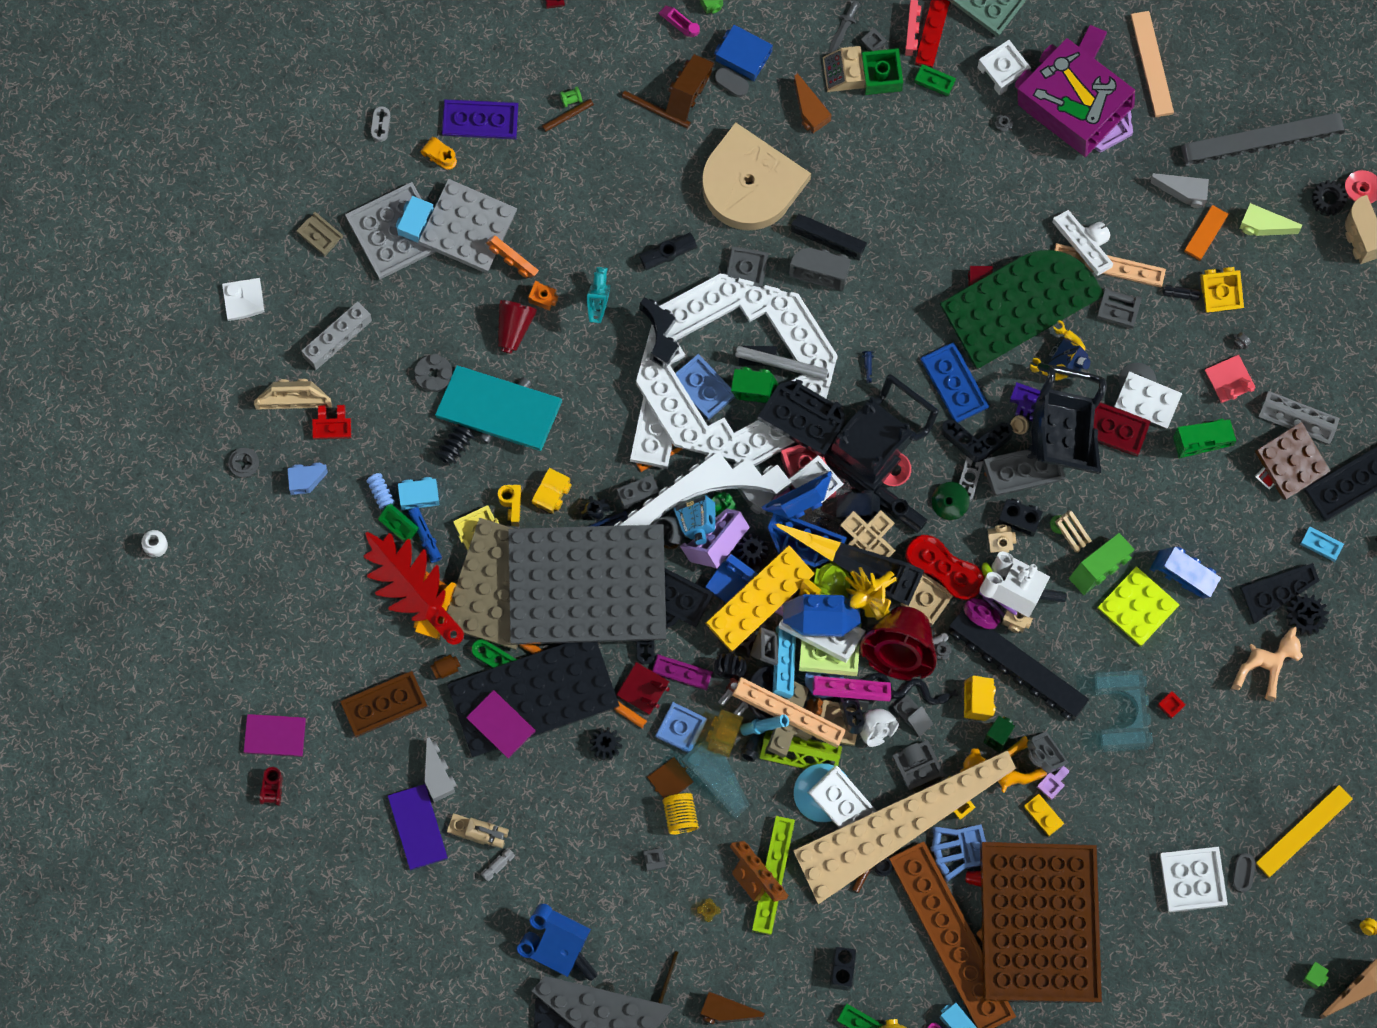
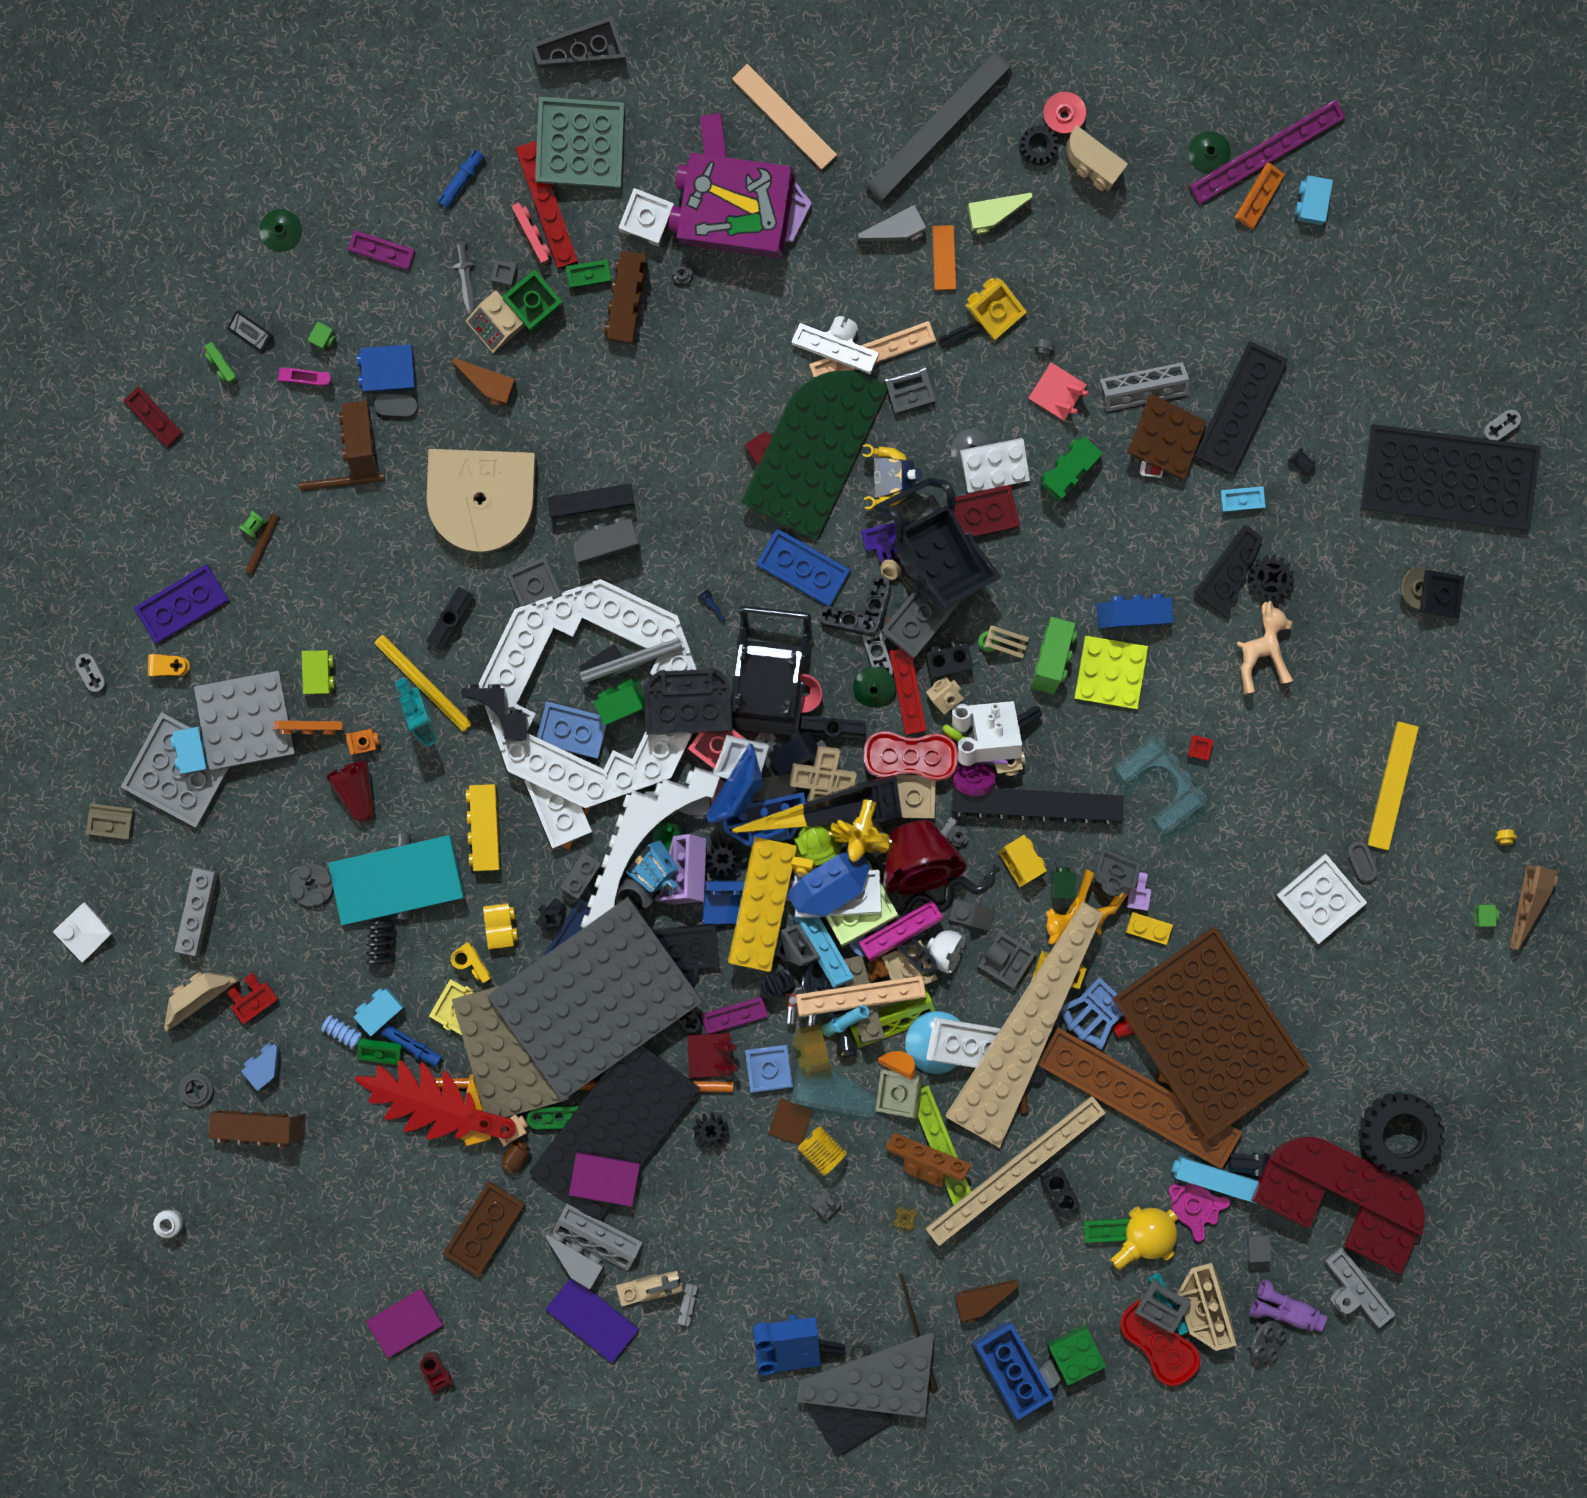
camera: 25 degrees left, 15 degrees up
(270, 517) = (256, 1128): none -> reddish brown wedge
(457, 649) = (521, 1125): none -> light nougat brick
(465, 764) = (598, 1235): none -> light grey fence
(544, 226) = (317, 672): none -> lime brick
(590, 413) = (484, 827): none -> yellow brick
(616, 284) = (423, 683): none -> yellow axle
(768, 810) = (898, 1094): none -> tile
(783, 787) = (899, 1062): none -> orange tile
(818, 927) = (1015, 1170): none -> tan plate
(952, 111) = (626, 298): none -> reddish brown wedge
(973, 520) = (907, 692): none -> red plate

